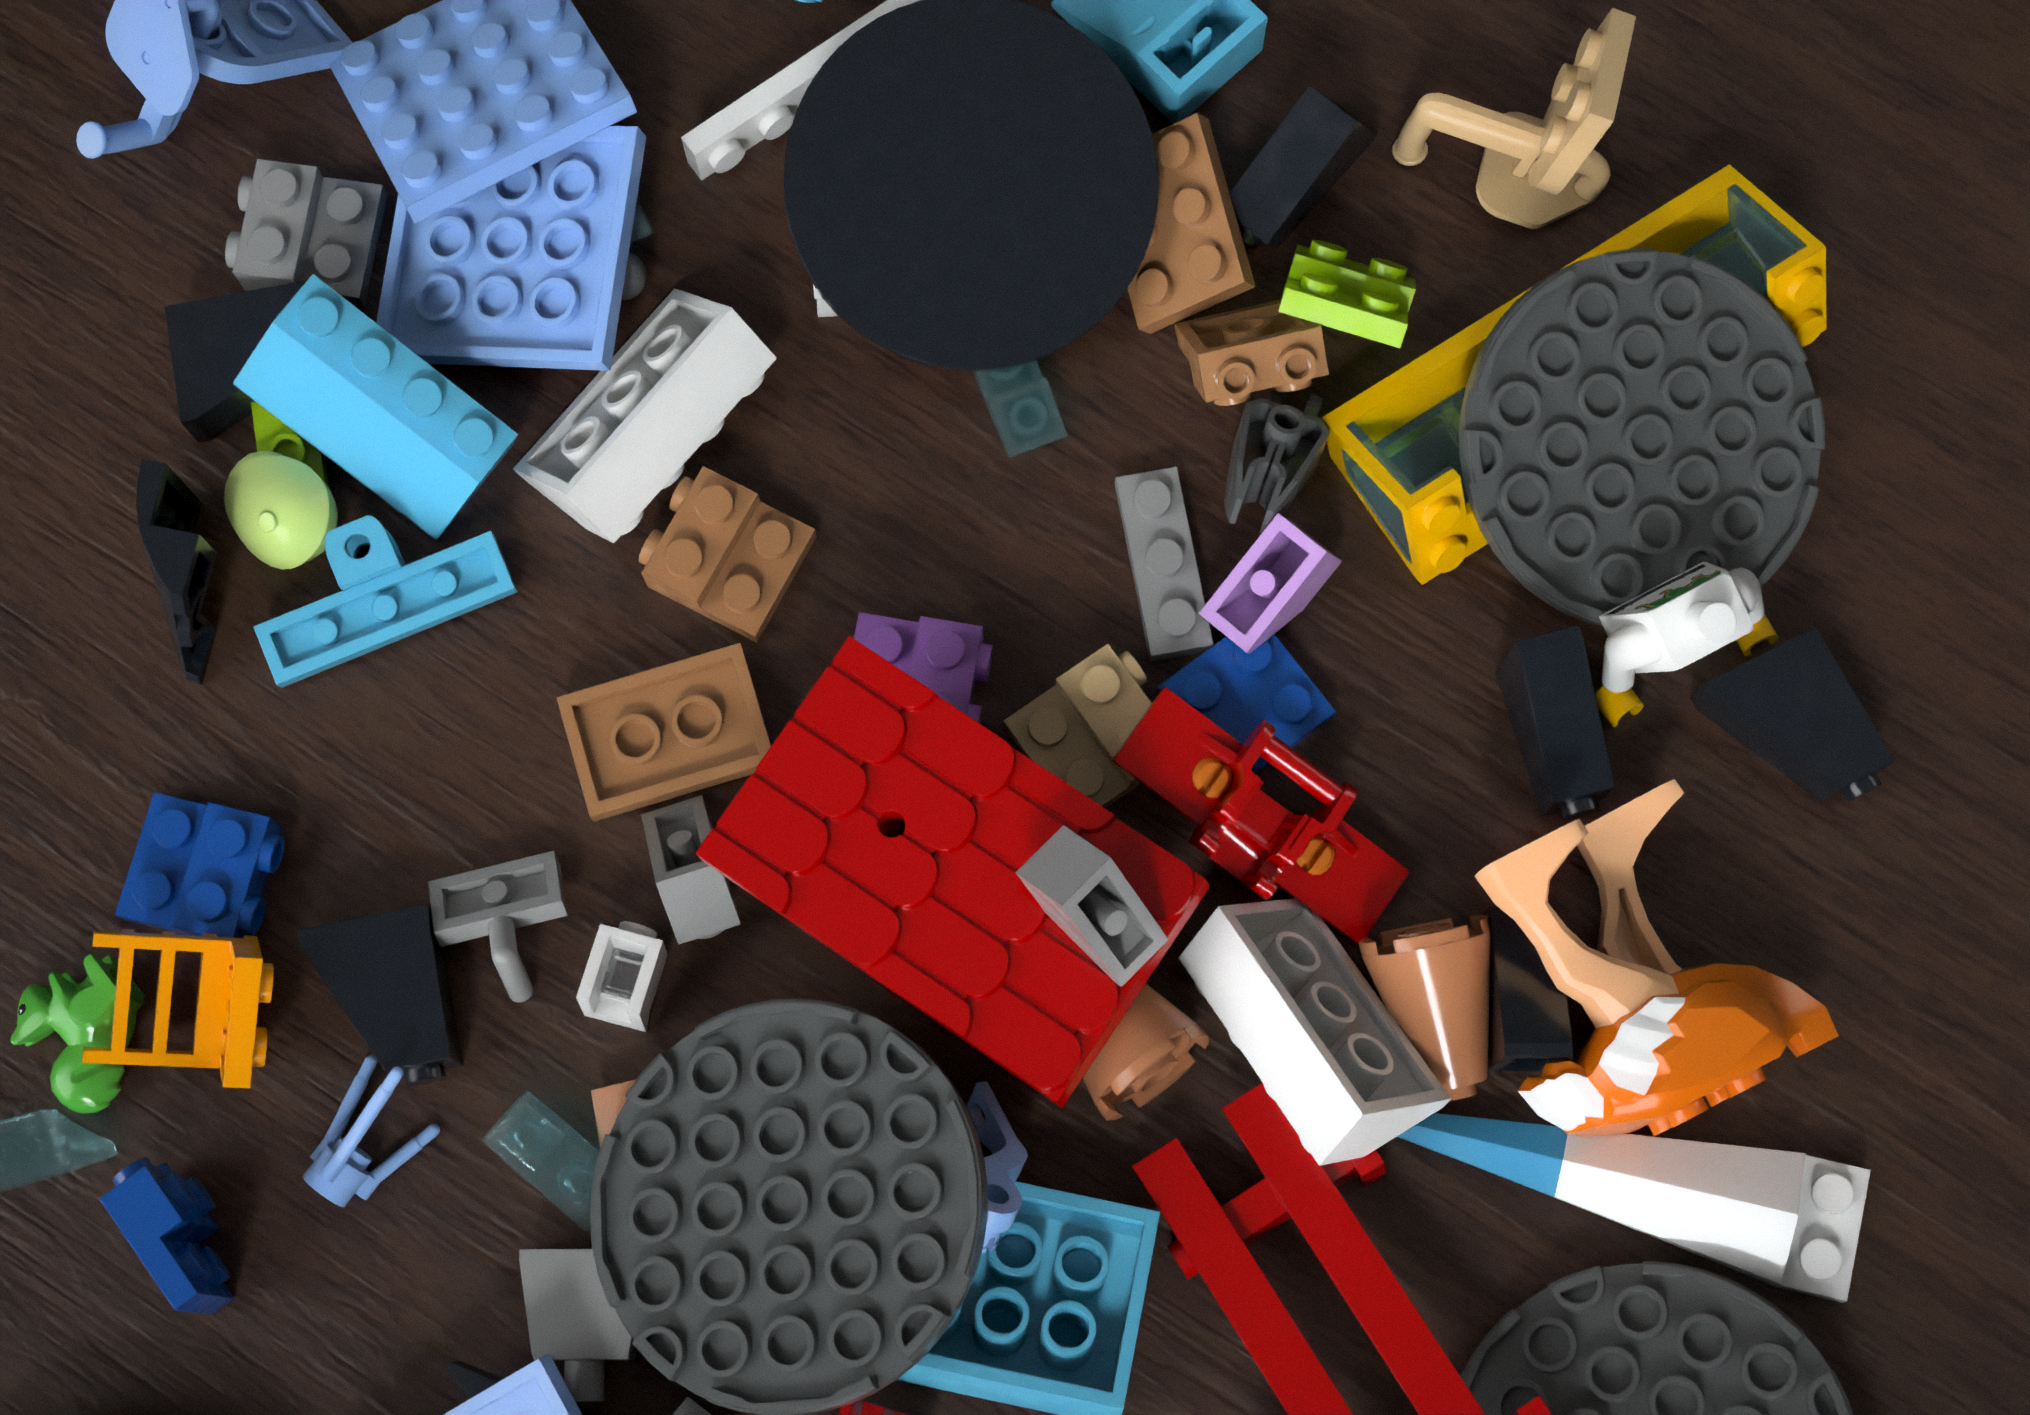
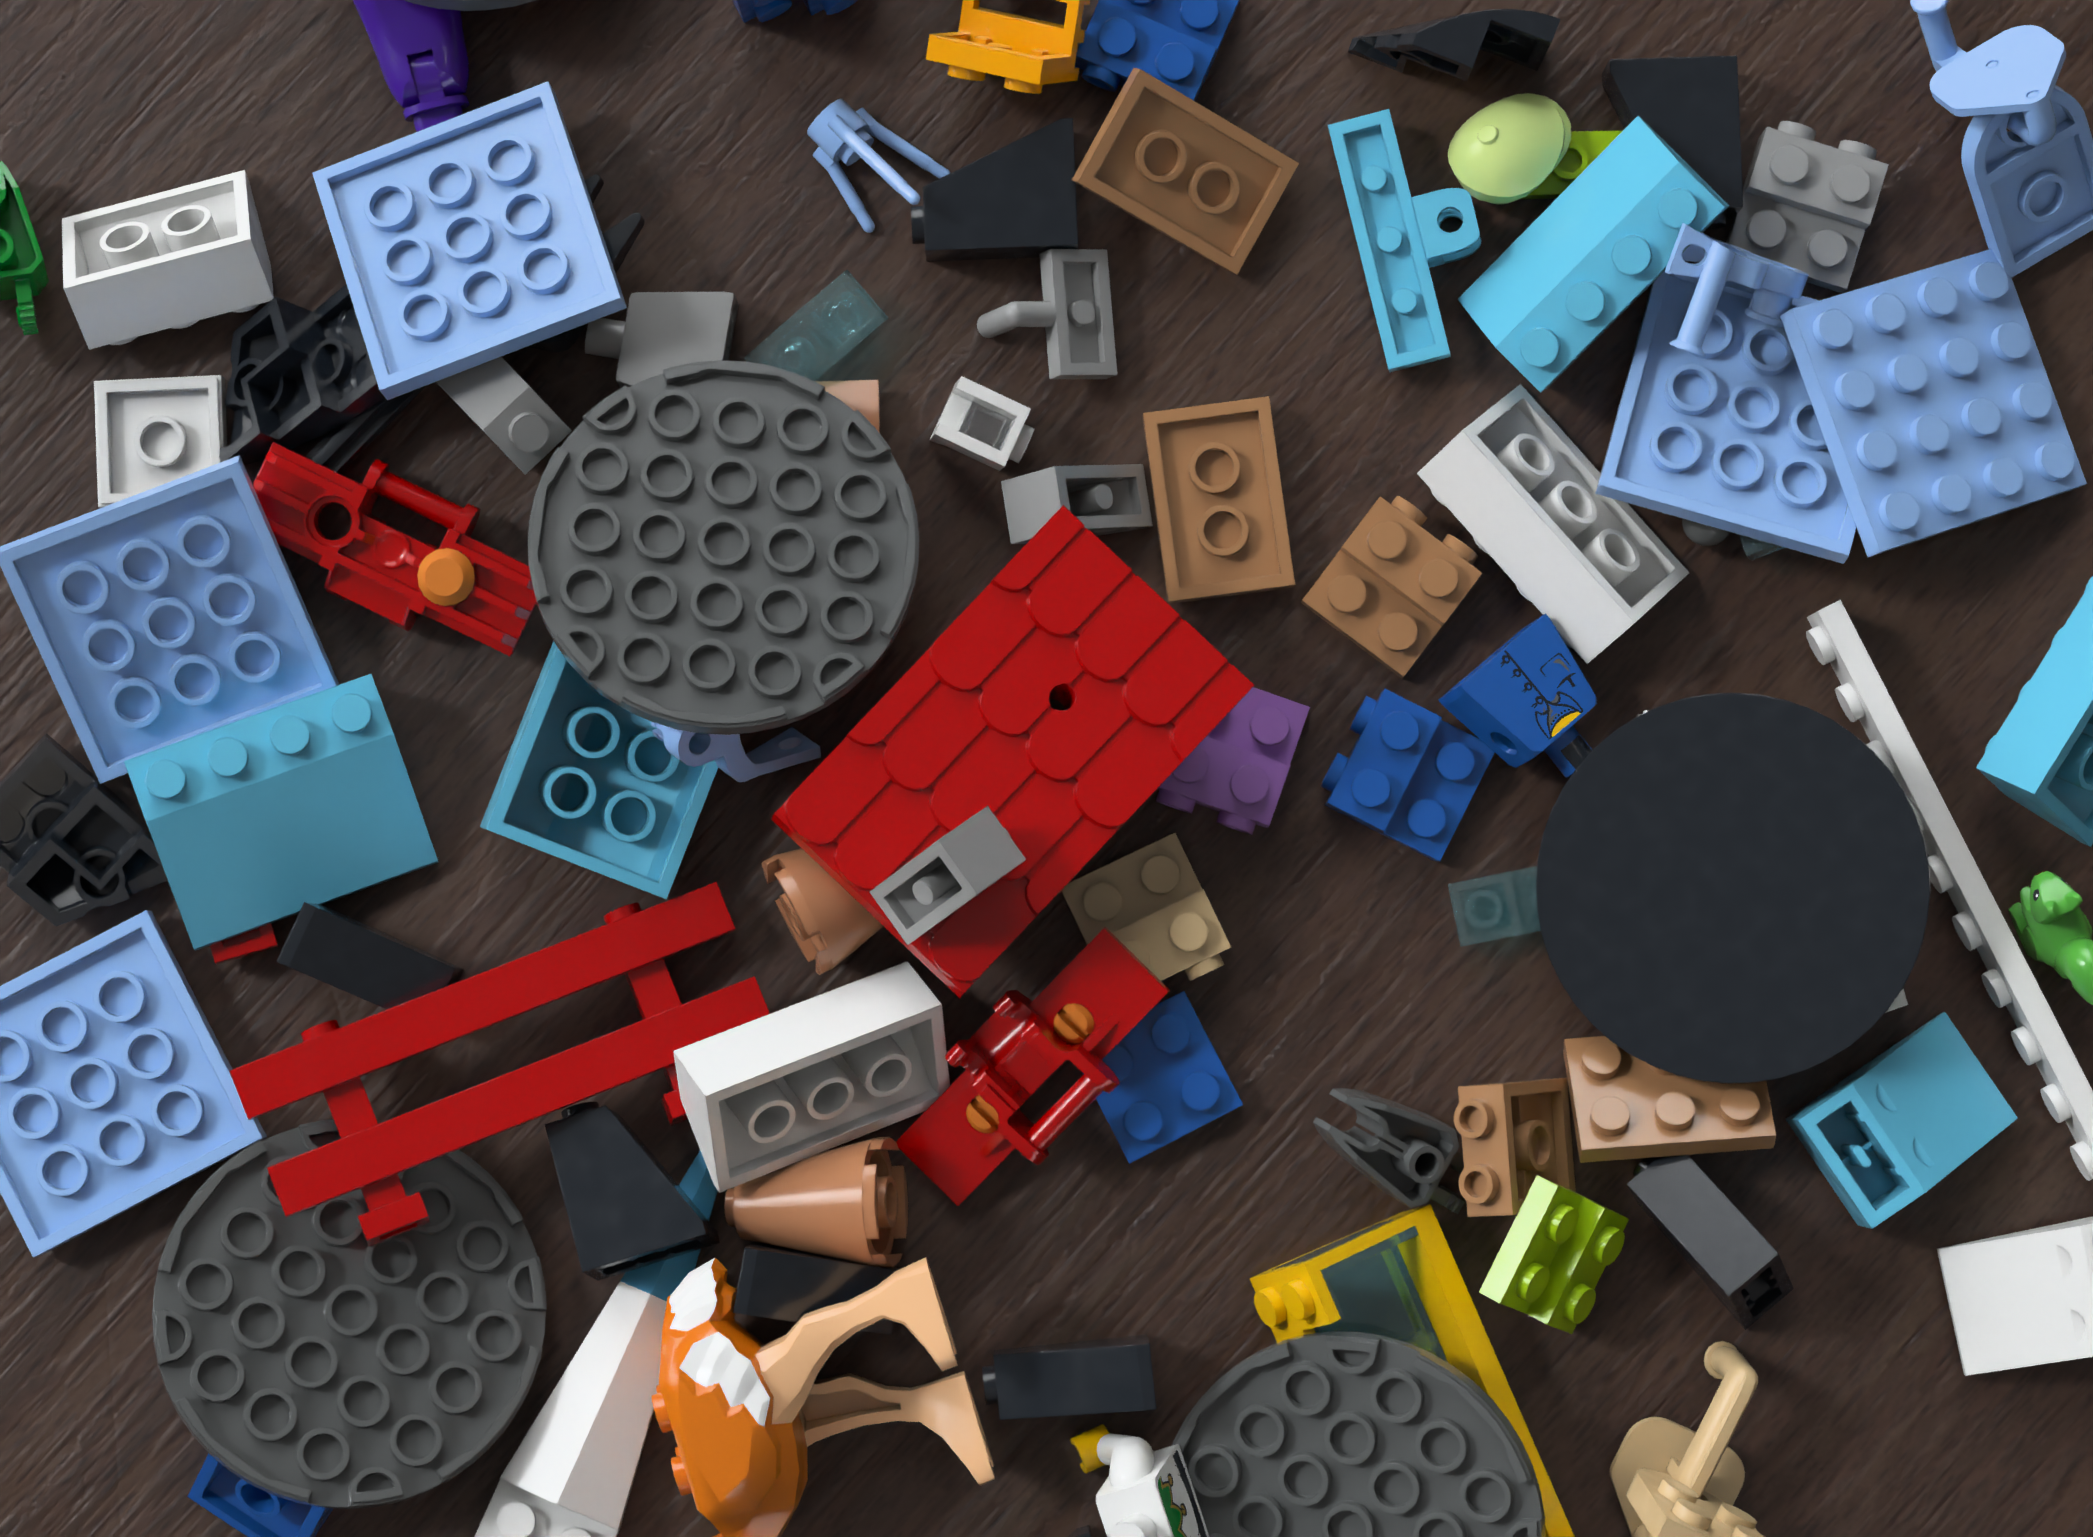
camera: 100 degrees right, 10 degrees up
(337, 812) = (1185, 171): none -> medium nougat plate
(370, 274) = (1722, 262): none -> light blue piece
(818, 407) = (1527, 699): none -> blue torso
(909, 513) = (1407, 774): none -> blue plate
(1163, 564) = (1313, 1020): light grey plate -> none
(1270, 584) = (1265, 1120): lavender slope -> none
(1469, 1207) = (619, 1195): none -> black slope

